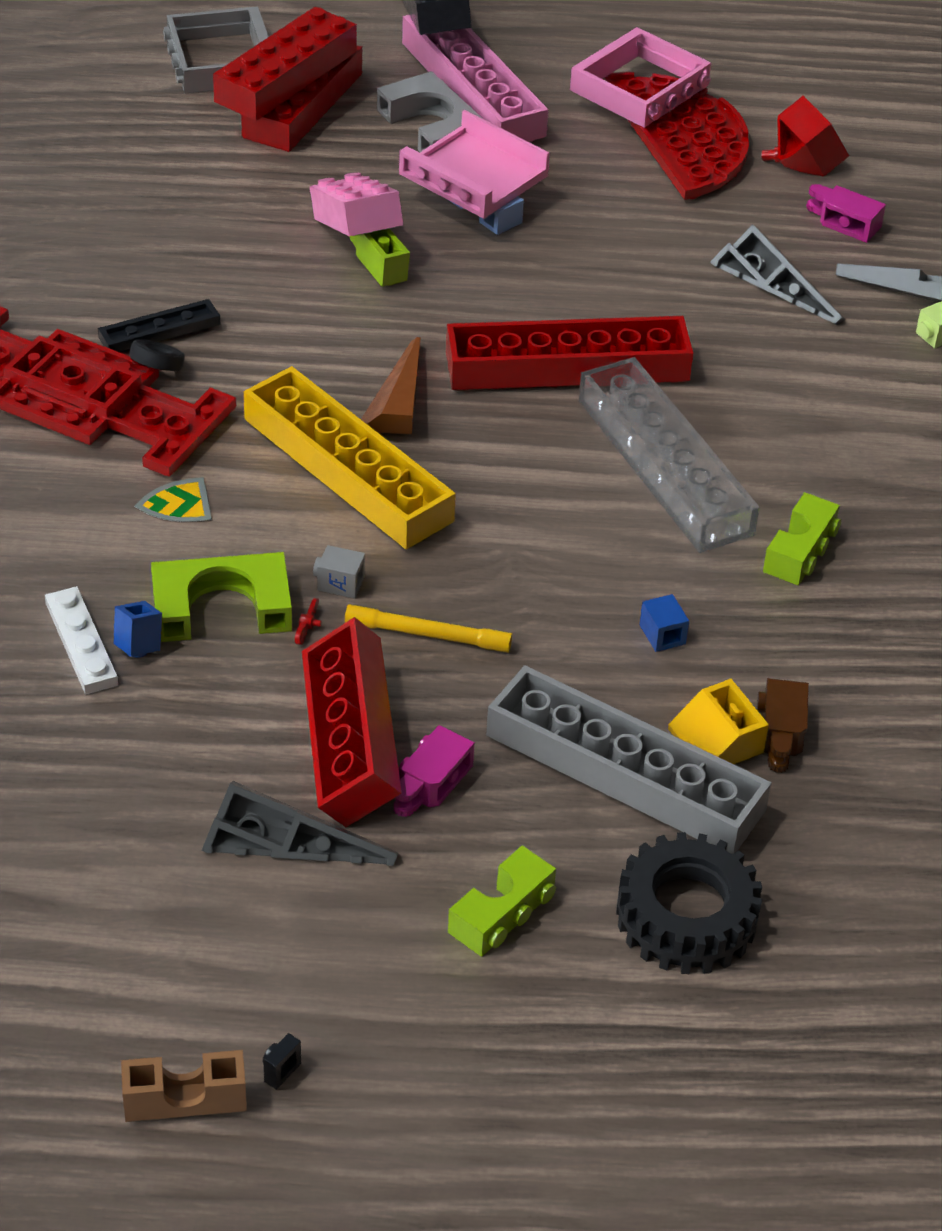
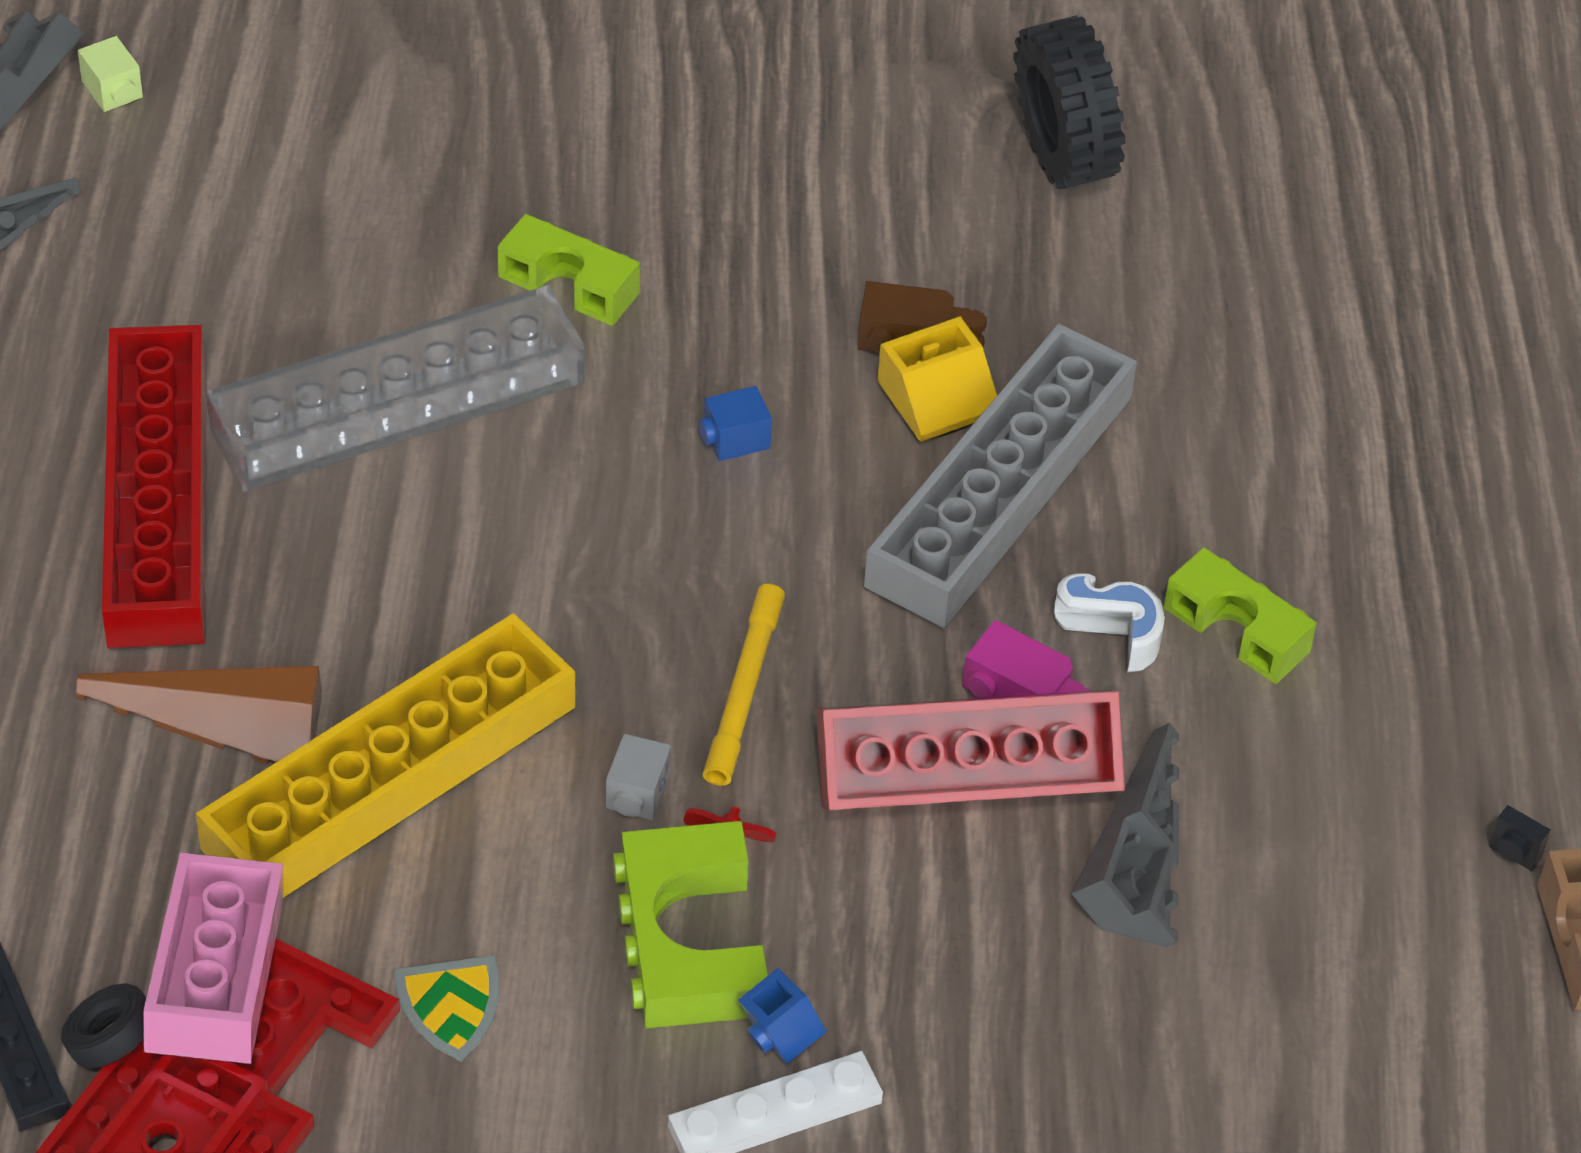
camera: 90 degrees left, 5 degrees up
(180, 372) = (213, 958): none -> bright pink brick
(501, 836) = (1113, 609): none -> white animal
(680, 938) = (1222, 476): black tyre -> none

